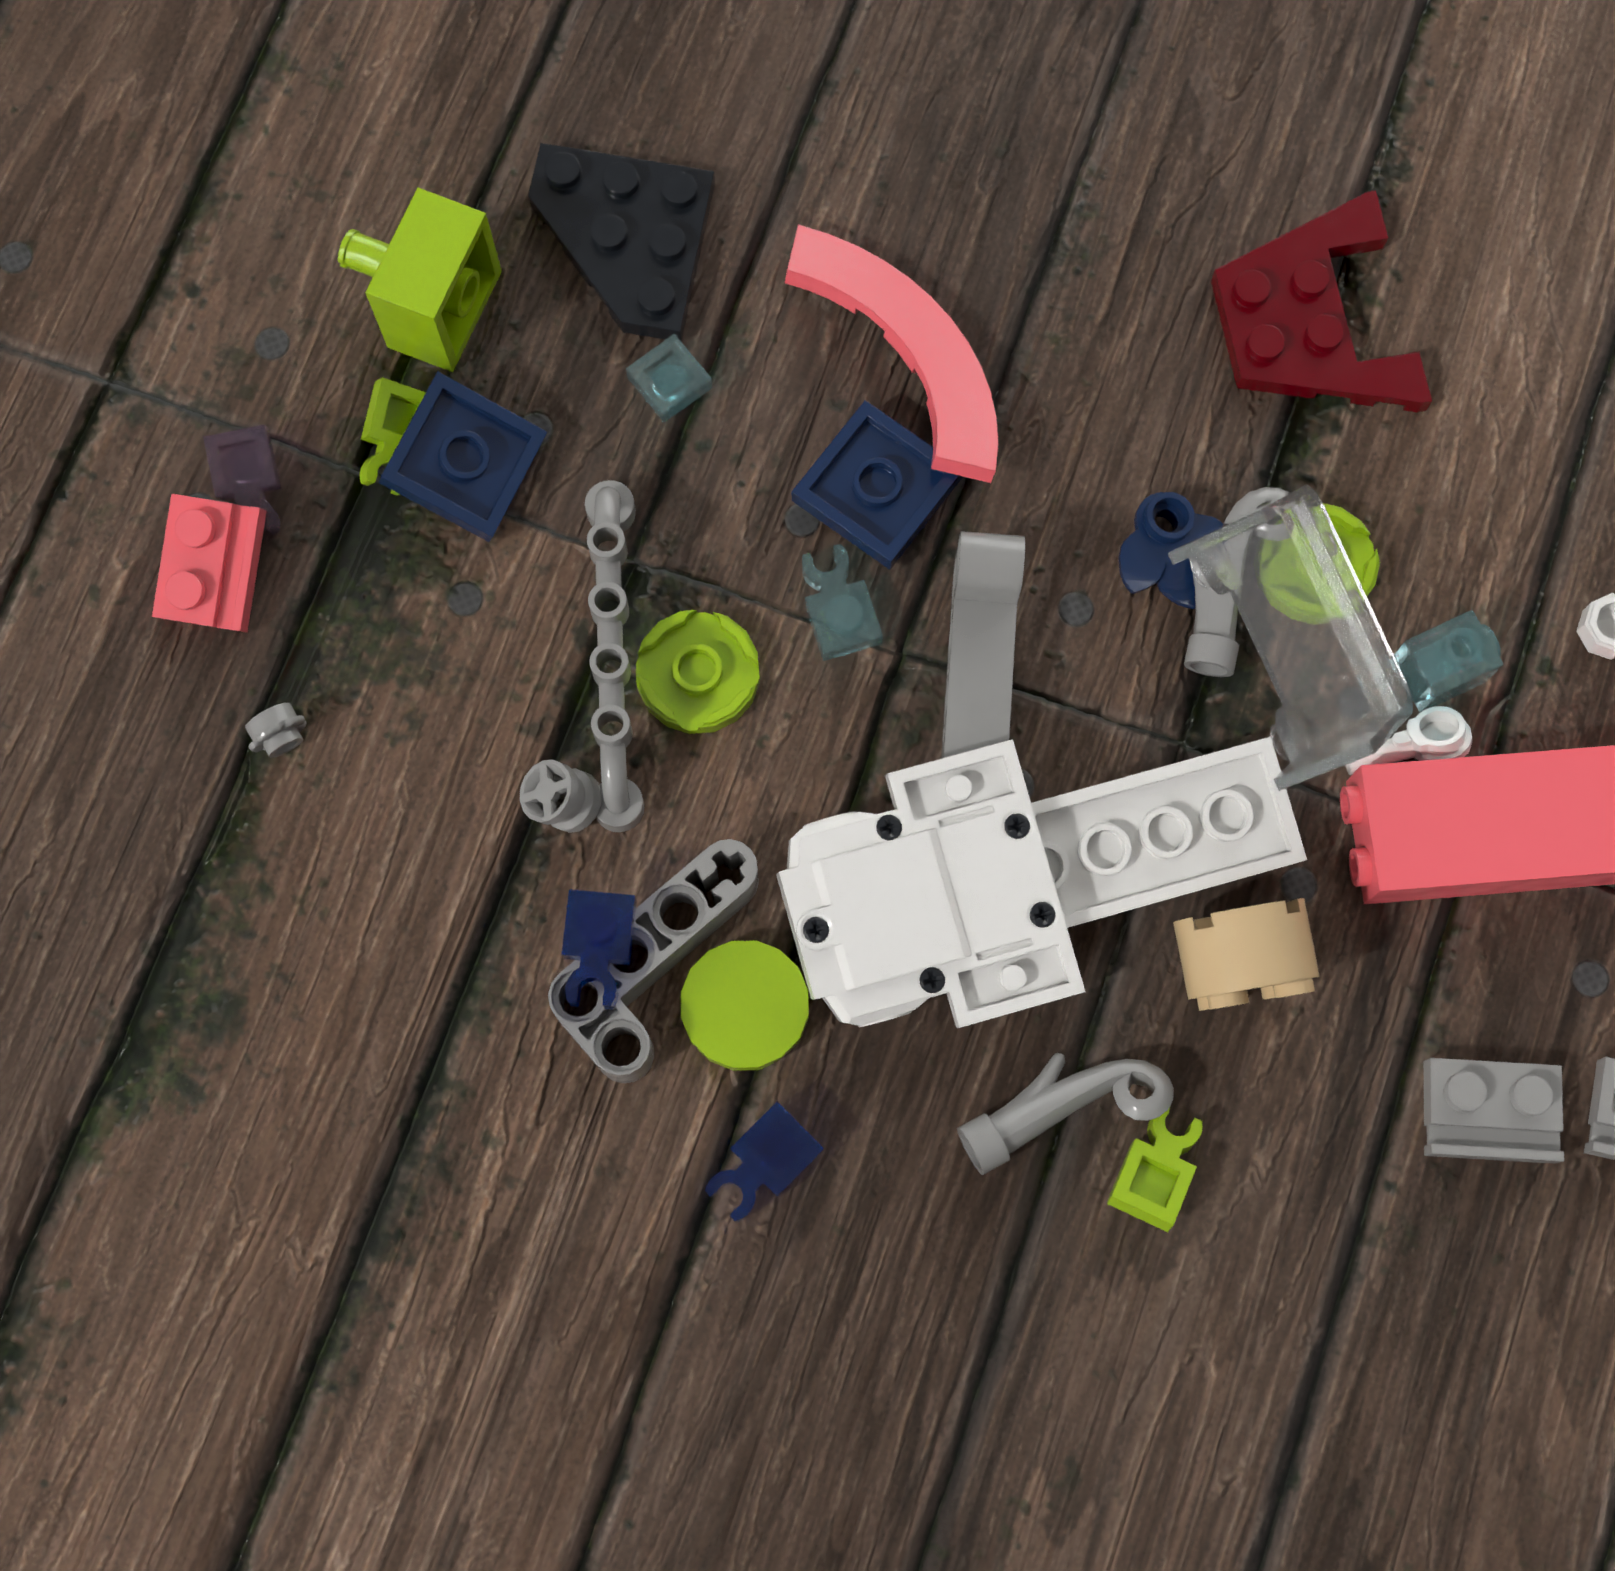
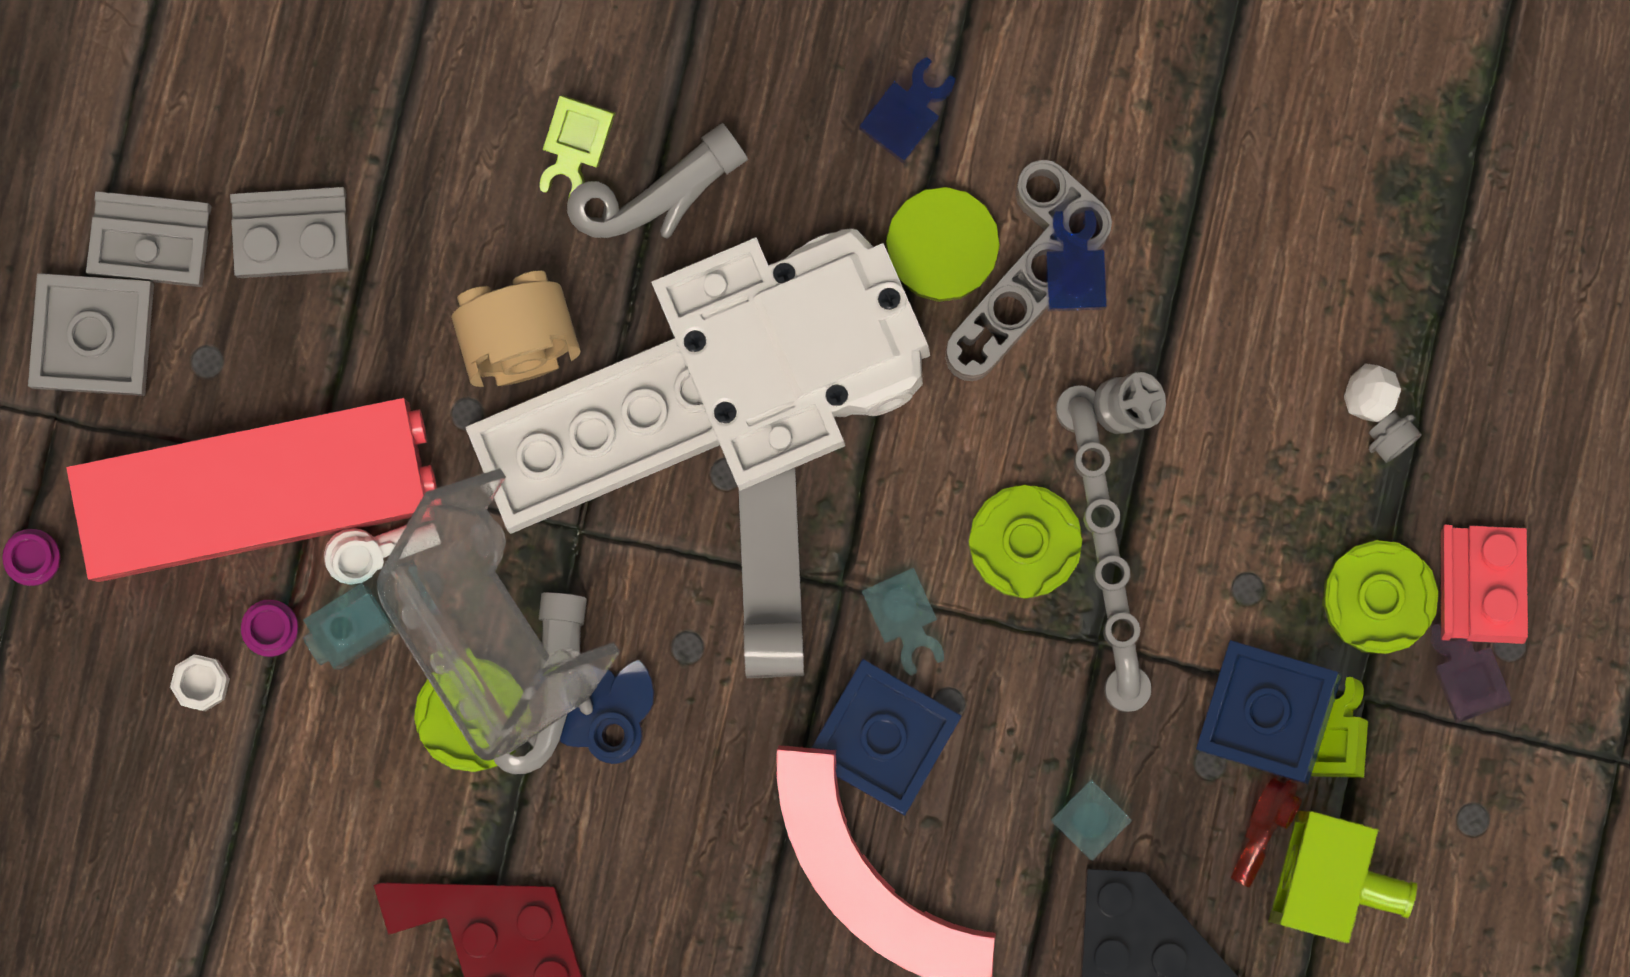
camera: 175 degrees right, 10 degrees up
(290, 777) = (1372, 393): none -> white tile
(324, 569) = (1380, 597): none -> lime tile
(476, 364) = (1274, 808): none -> clear red plate
(1532, 675) = (269, 628): none -> magenta plate

